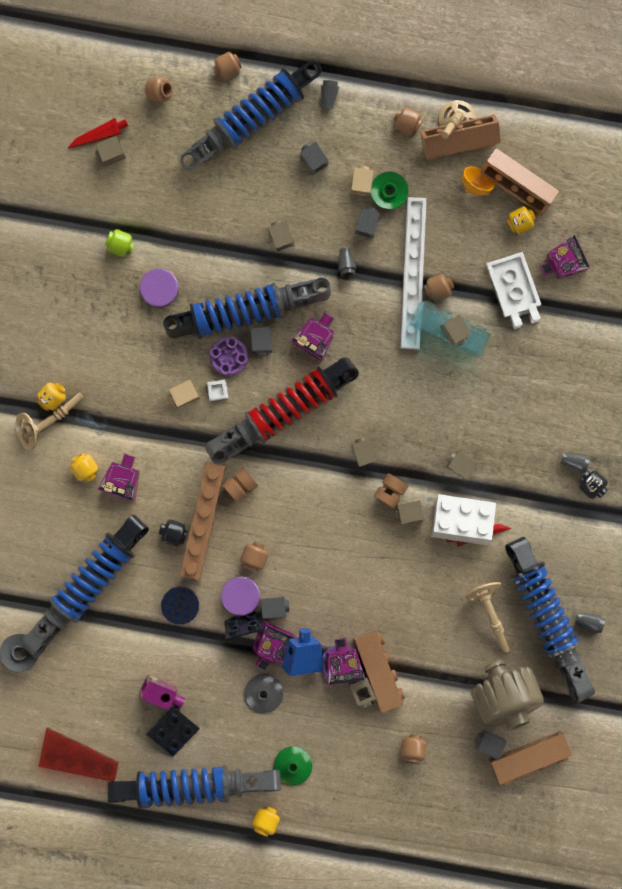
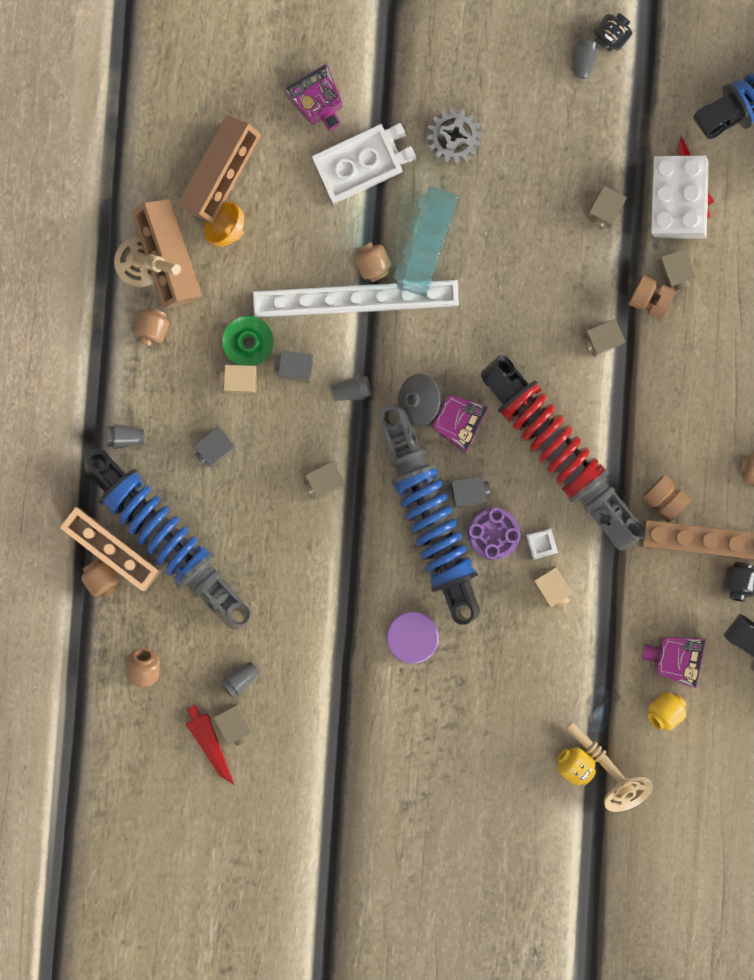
camera: 100 degrees left, 0 degrees up
(119, 243) = (358, 698): lime head -> none
(142, 158) = (239, 679): none -> dark grey cone
(247, 74) = (110, 549): none -> light nougat brick
(333, 311) = (426, 397): none -> dark grey dish
(456, 330) = (432, 230): dark tan brick -> none
(521, 220) = (270, 161): yellow head -> none
(534, 361) = (445, 132): none -> light grey gear

